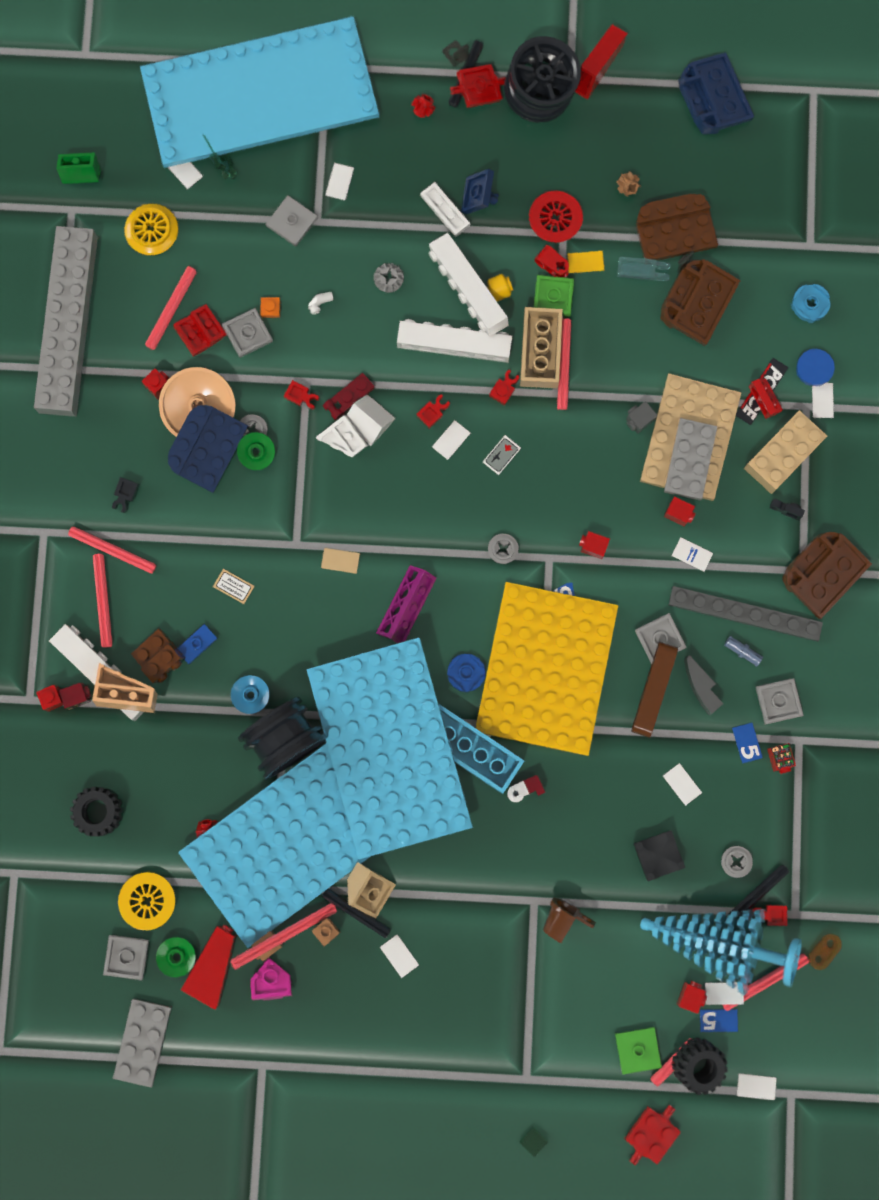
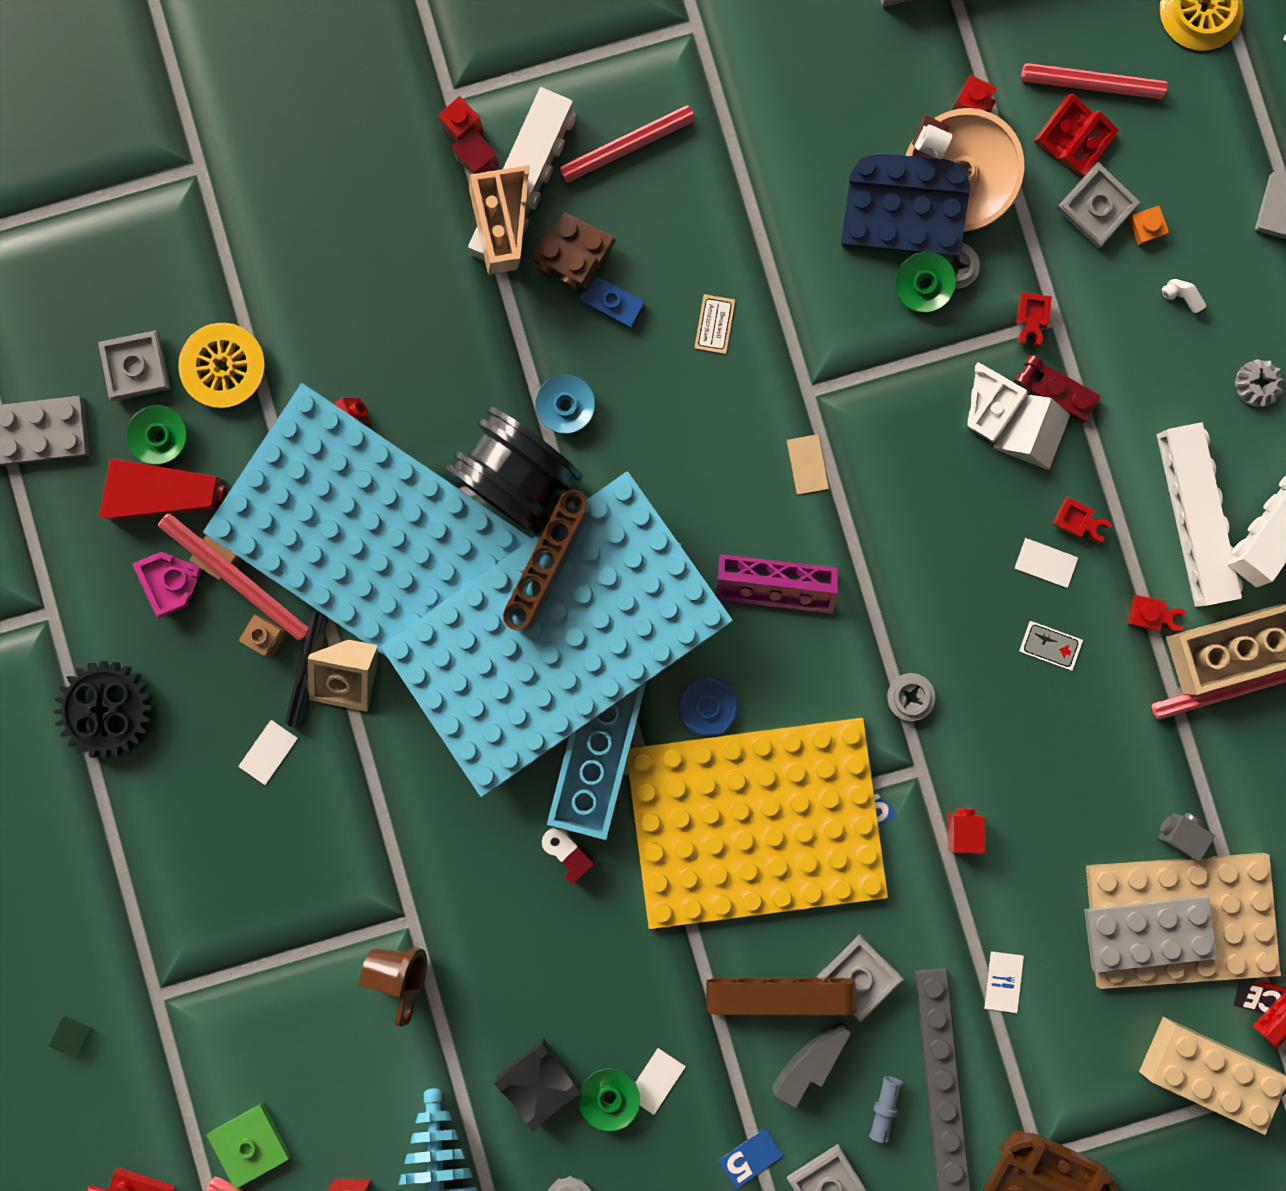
camera: 70 degrees right, 5 degrees up
(80, 807) = (308, 228): black tyre -> none
(112, 549) = (705, 130): coral axle -> none
(126, 491) = (797, 117): black plate -> none
(171, 417) = (932, 137): none -> white leg
(331, 1067) = (78, 710): none -> black gear
(335, 731) = (533, 569): none -> reddish brown beam
(680, 511) = (1063, 944): red brick -> none
(692, 812) = (609, 1114): none -> green dish
(791, 510) = (1125, 1110): black plate -> none

